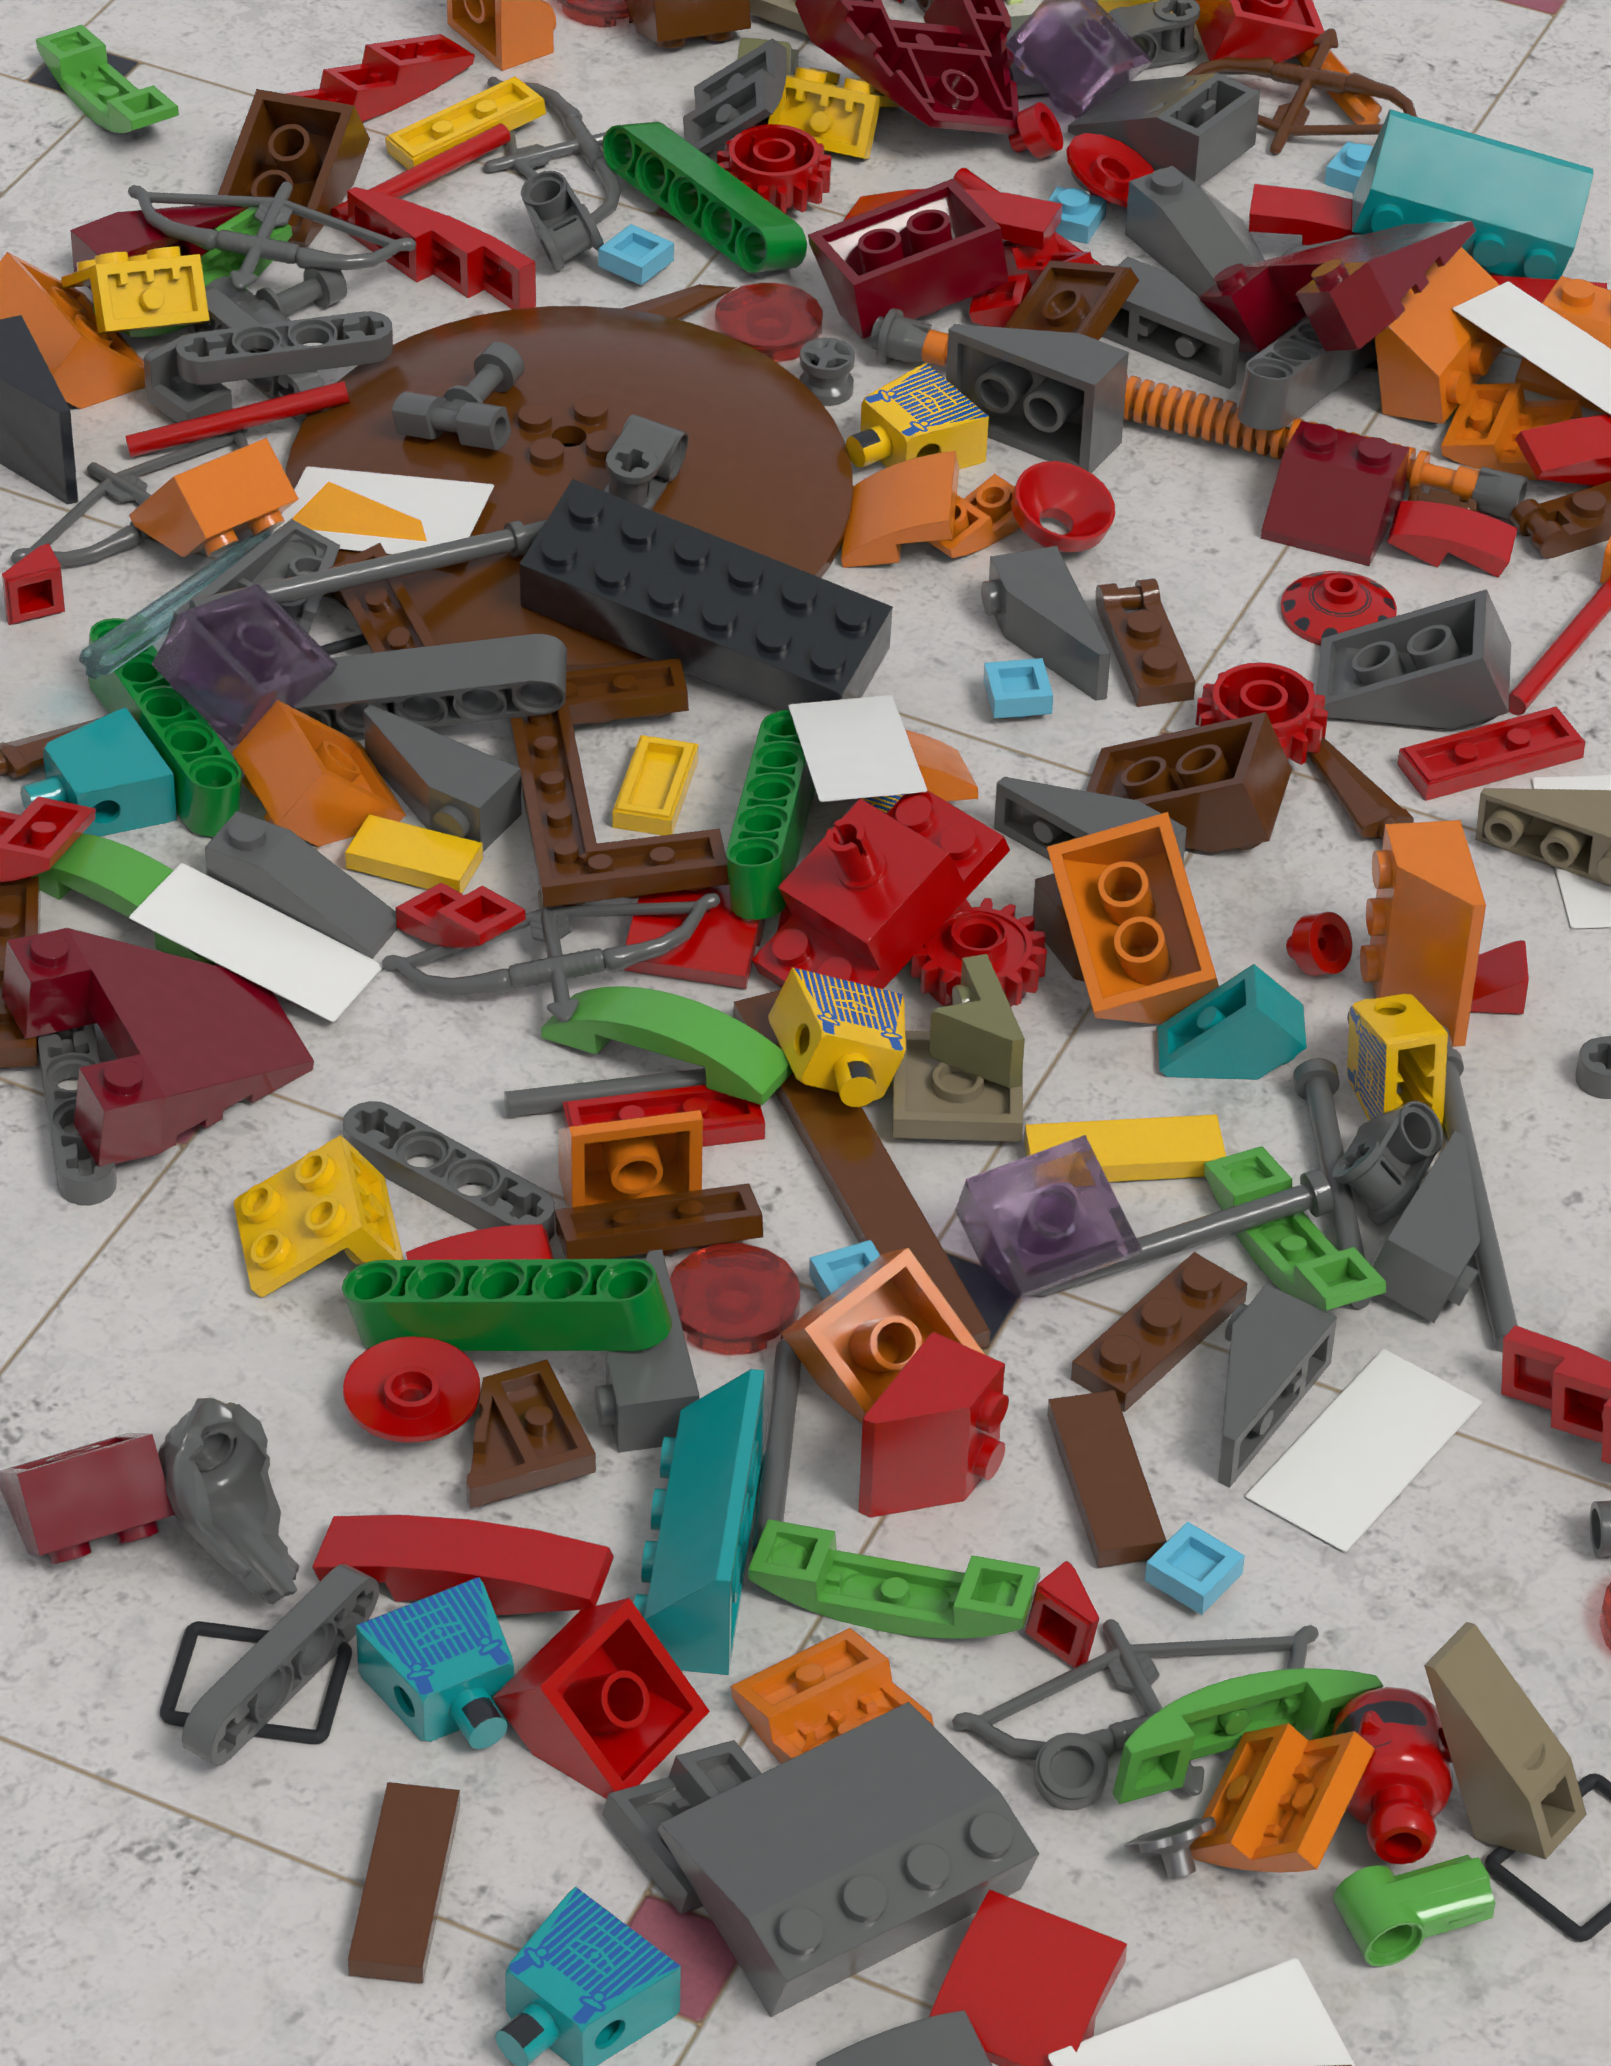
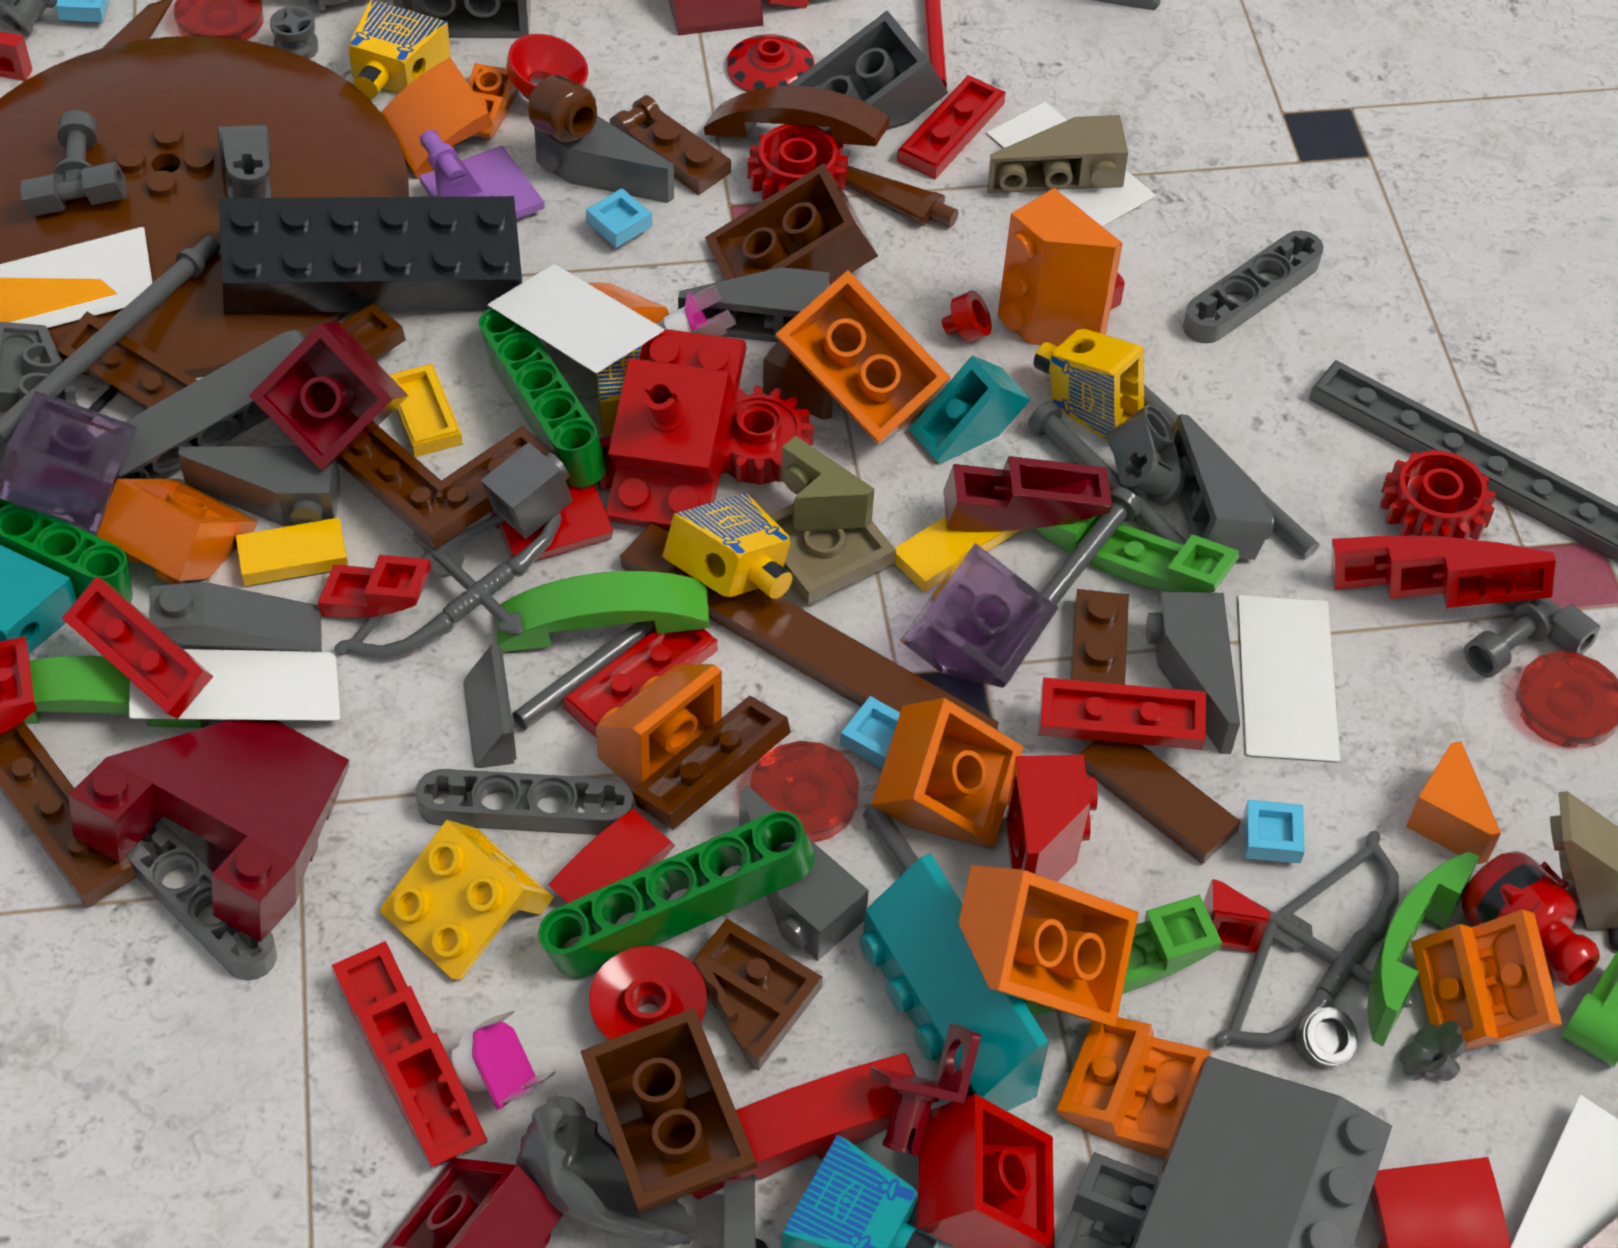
camera: 35 degrees left, 10 degrees up
(154, 1324) = (409, 1055): none -> red slope
(179, 856) = (137, 647): none -> red plate
(224, 1362) = (495, 1061): none -> dark pink piece
(338, 1465) = (668, 1110): none -> reddish brown slope
(486, 1082) = (490, 711): none -> dark grey slope
(538, 707) = (328, 394): none -> dark red slope
(575, 1577) = (917, 1094): none -> dark red bracket
(669, 884) = (528, 489): none -> flat silver brick
(815, 1507) = (1048, 941): none -> orange slope
(917, 592) = (480, 175): none -> medium lavender plate
(997, 809) = (691, 318): none -> piece
(1022, 544) = (562, 109): none -> reddish brown head
(1119, 1376) = (1122, 713): none -> red plate
(1204, 1129) = (1024, 495): none -> dark red slope
(1343, 679) = (849, 118): none -> reddish brown slope
(1410, 1628) = (1455, 808): none -> orange slope

